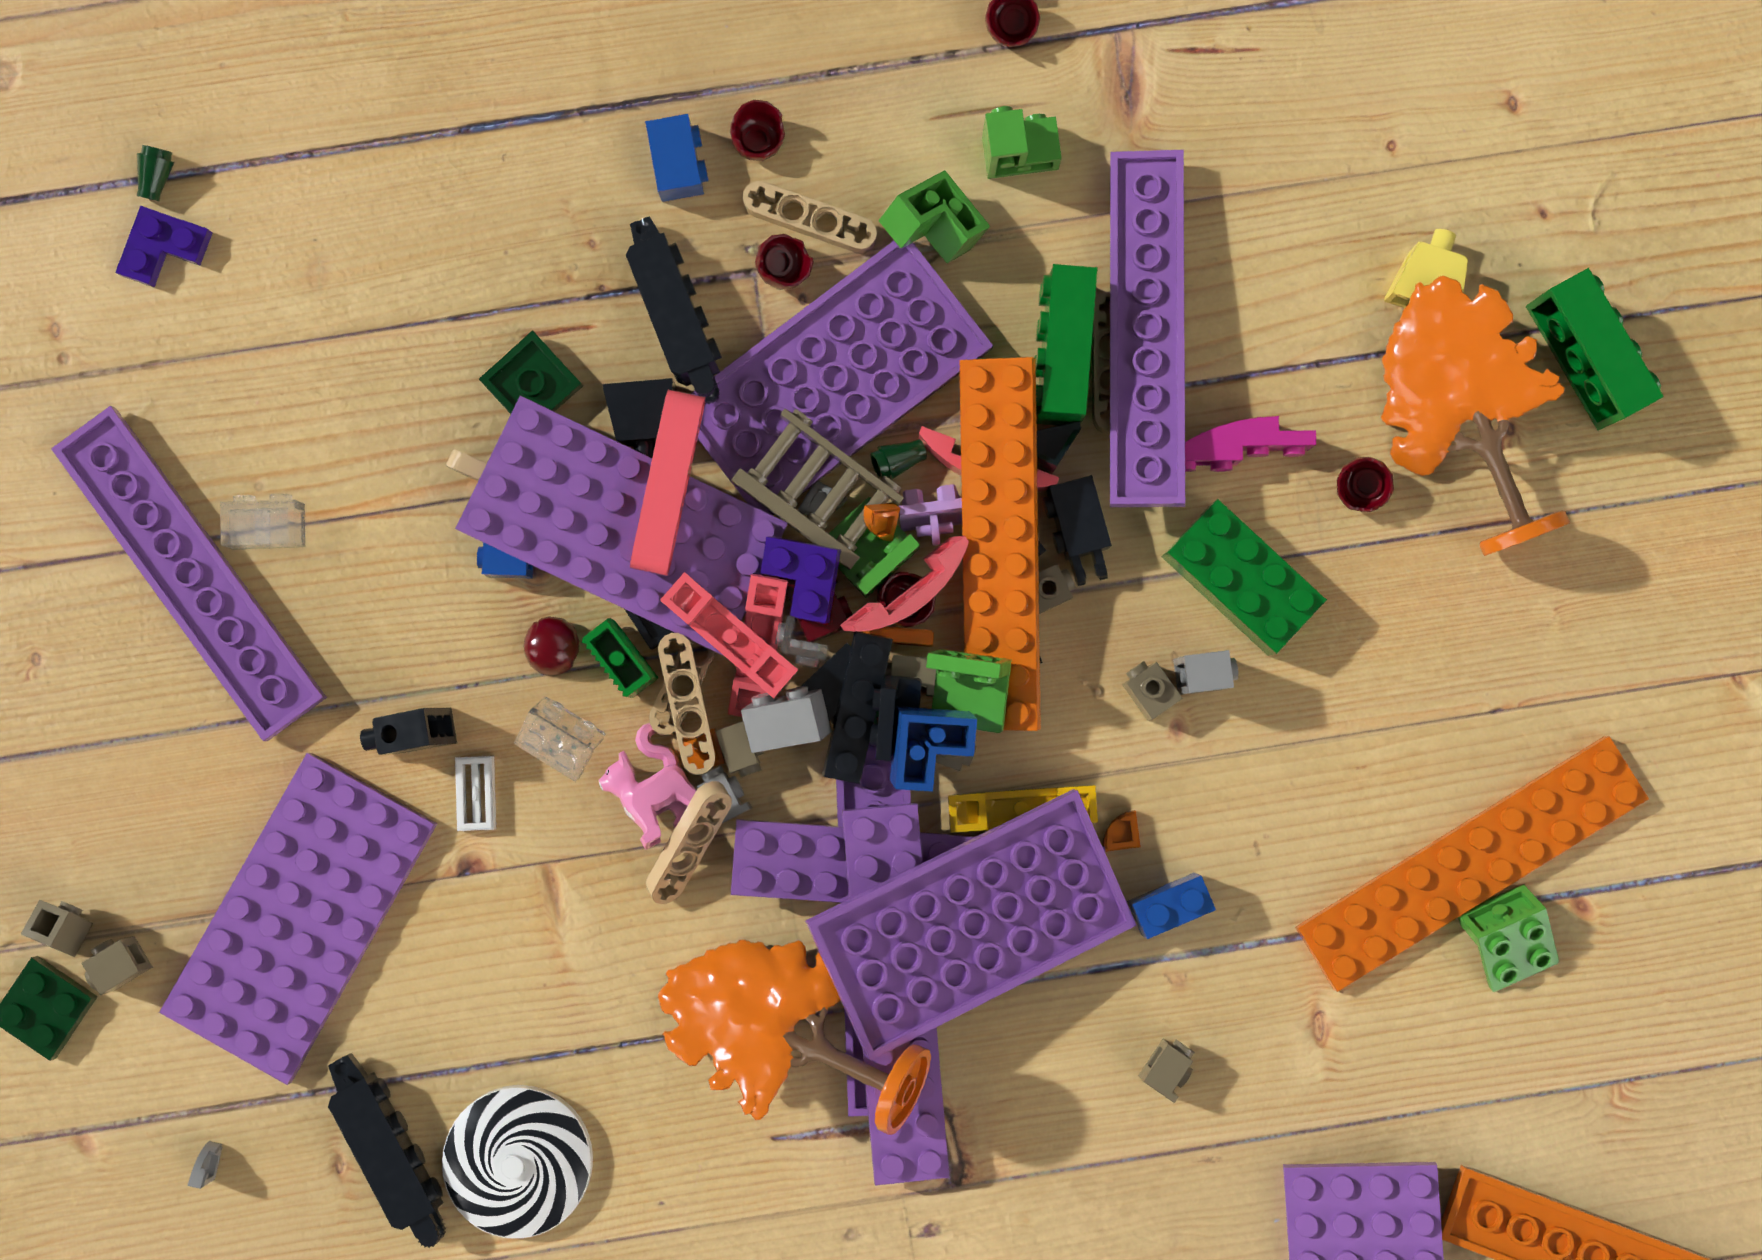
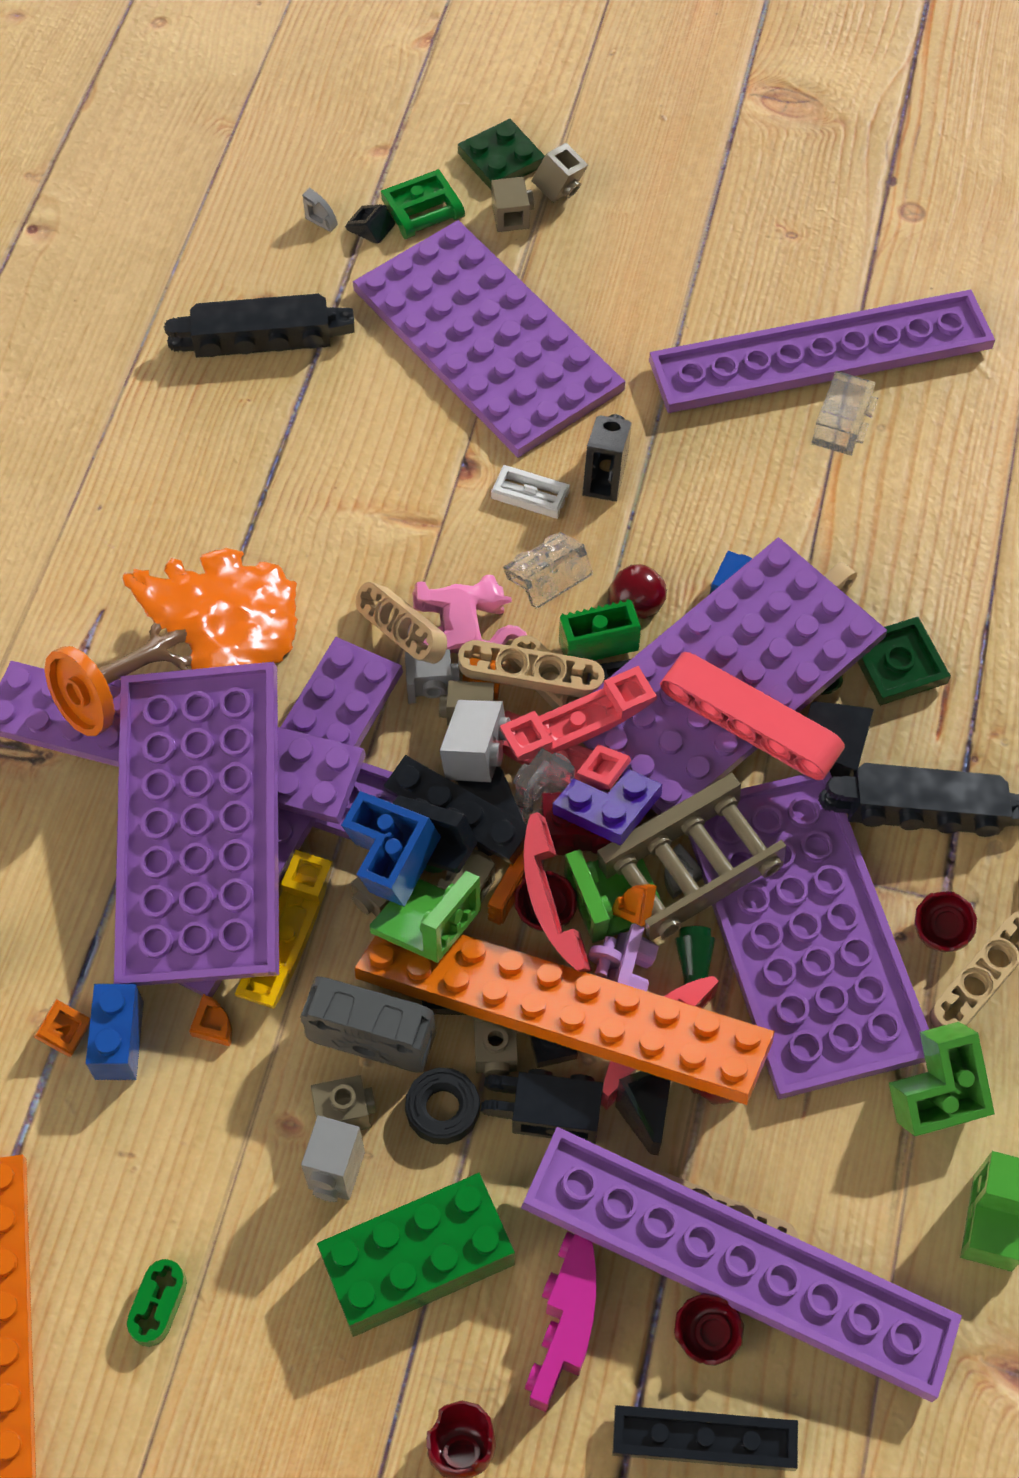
camera: 110 degrees right, 25 degrees down
(141, 1069) = (419, 195): none -> green plate
(195, 1105) = (371, 222): none -> black slope
(517, 1161) = (197, 416): dish -> none
(1066, 343) = (751, 1160): green brick -> none
(1082, 695) = (369, 1024): none -> dark grey axle
(1113, 634) = (449, 1130): none -> black tyre
(1183, 952) = (62, 1028): none -> orange tile
(1205, 334) = (709, 1329): none -> dark red hair
(1280, 310) = (705, 1438): none -> black plate
(1360, 753) = (147, 1299): none -> green beam

